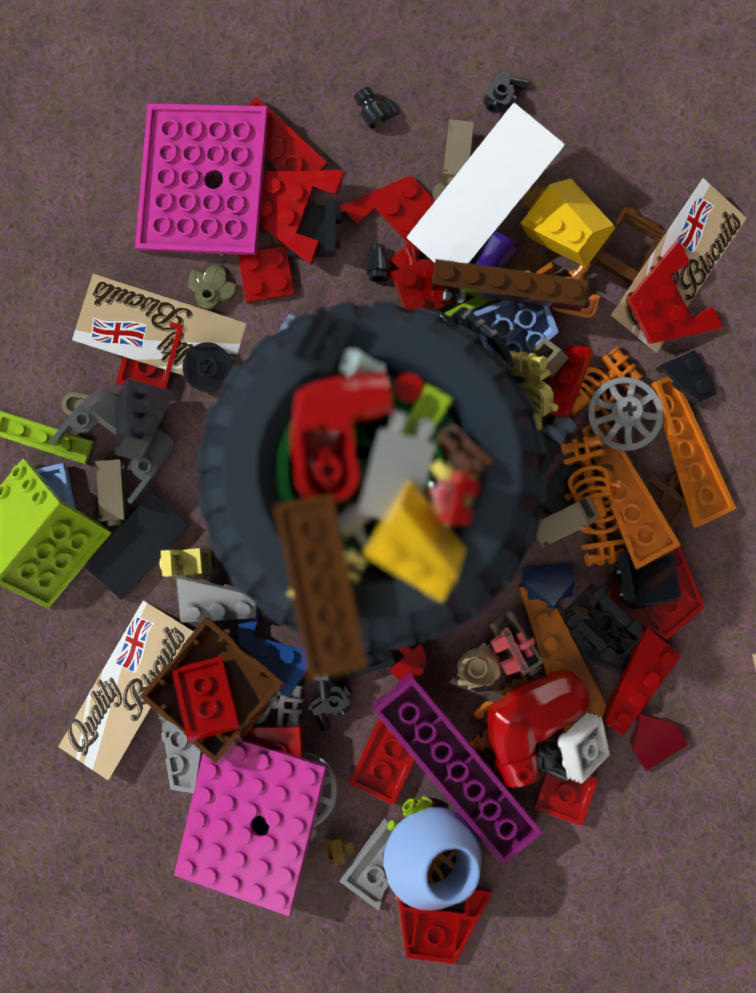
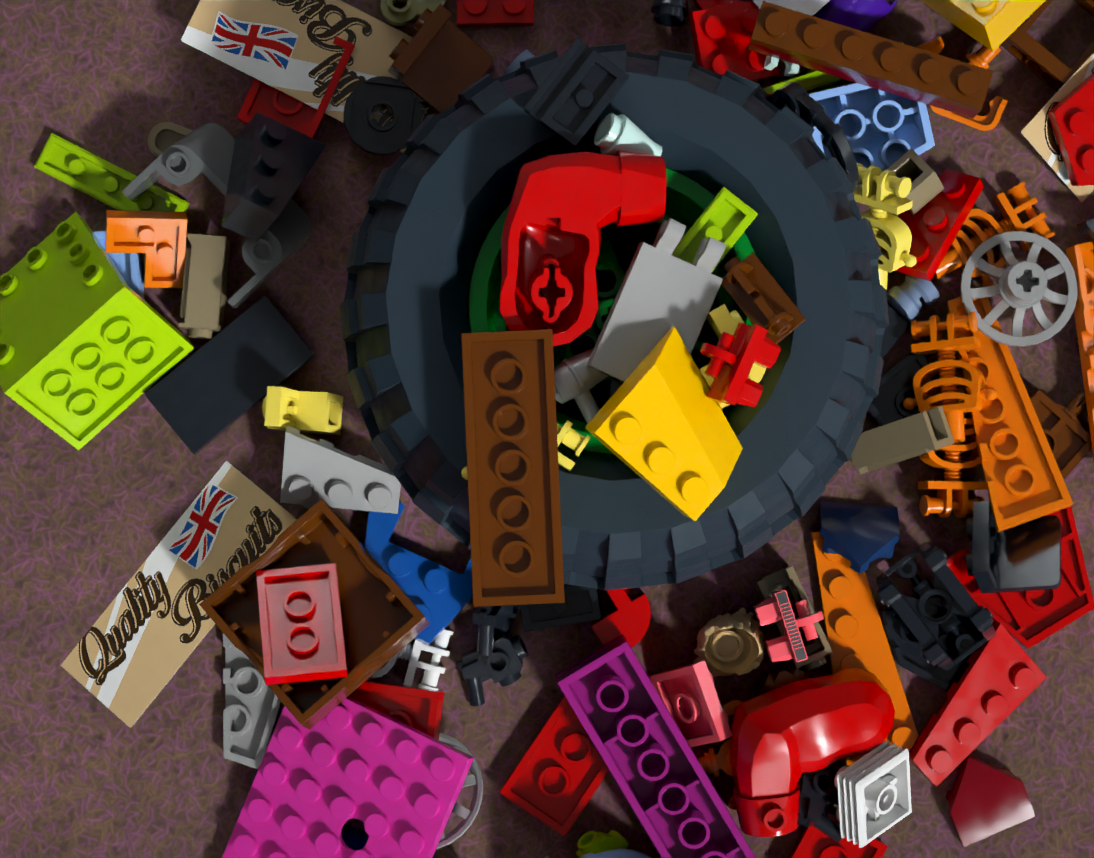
camera: 10 degrees right, 0 degrees up
(78, 466) = (156, 235): none -> orange plate
(237, 326) = (438, 60): none -> reddish brown bracket
(408, 388) = (694, 188): red tile -> none
(461, 708) = (693, 703): none -> coral plate

